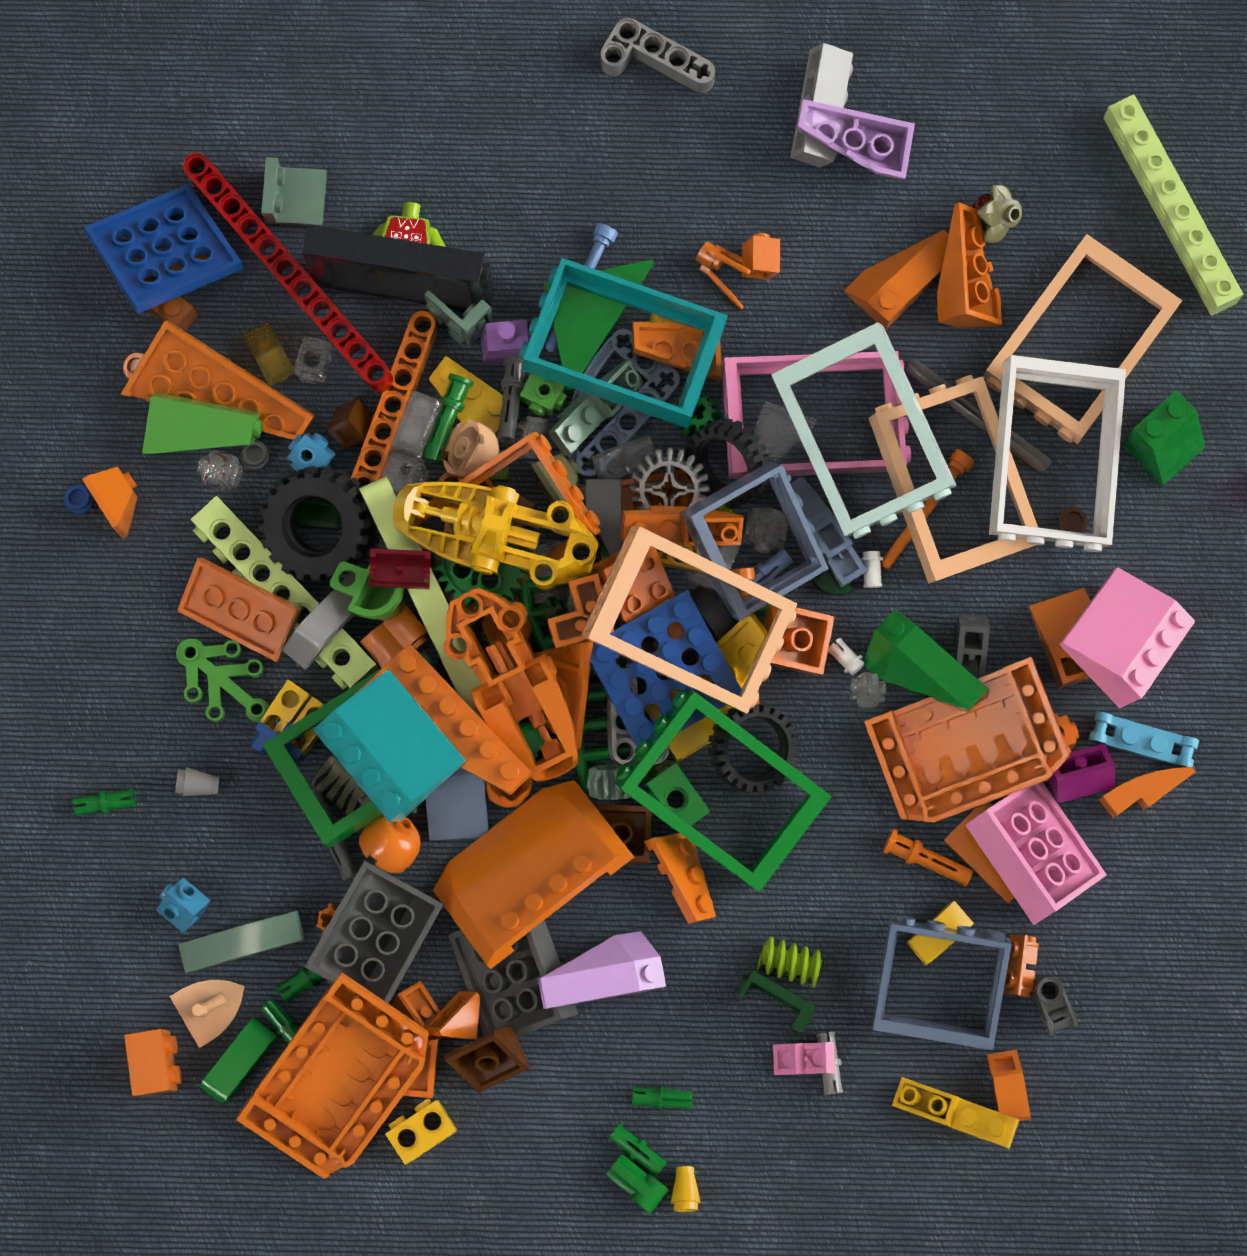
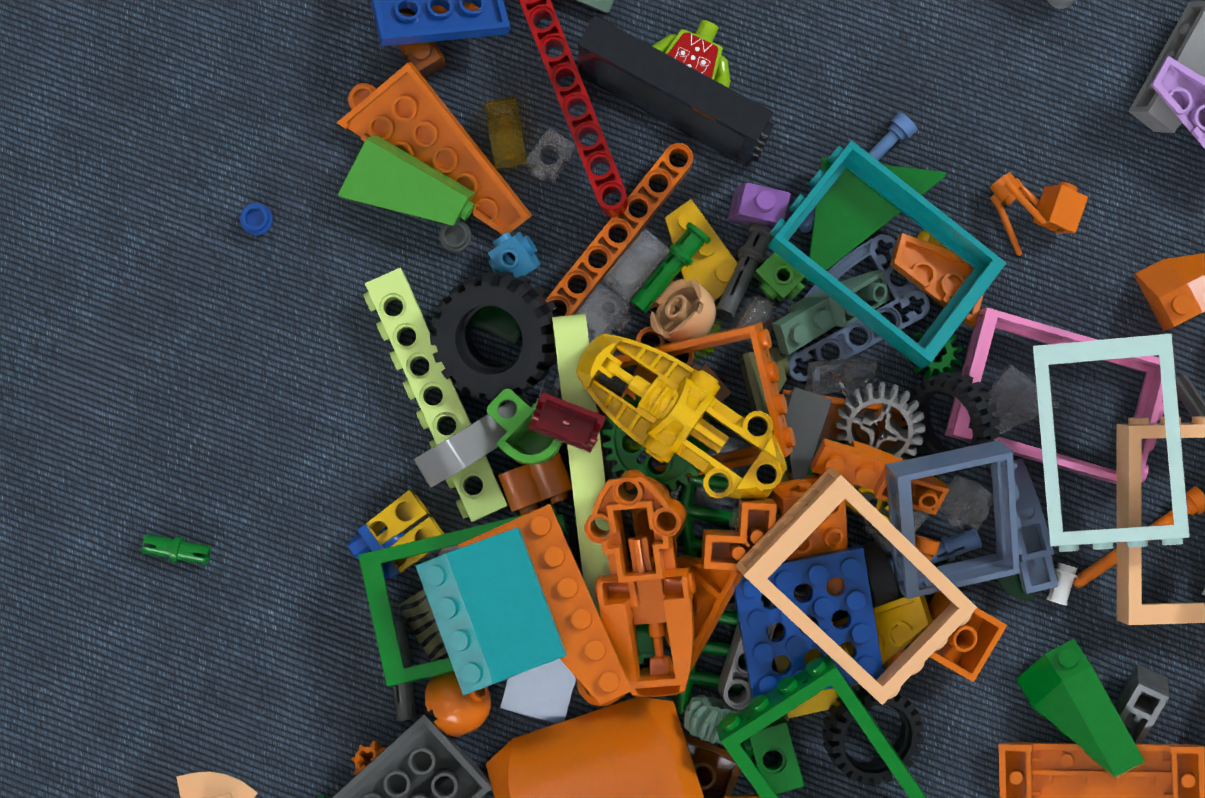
camera: 15 degrees right, 5 degrees up
(115, 497) = (292, 231): orange slope -> none
(182, 904) = (220, 688): dark azure brick -> none
(194, 783) = (277, 563): light grey cone -> none
(219, 676) = (338, 459): bright green plant -> none
(220, 470) = (413, 241): clear head -> none
(239, 609) = (383, 396): orange tile -> none
(241, 942) = (269, 748): sand green slope -> none
(350, 423) = (566, 237): reddish brown panel -> none
(464, 330) = (723, 182): sand green bracket -> none
(553, 607) = (714, 516): dark green plate -> none
(846, 657) = (1003, 668): white pin -> none
(867, 690) = (1013, 712): clear gear -> none

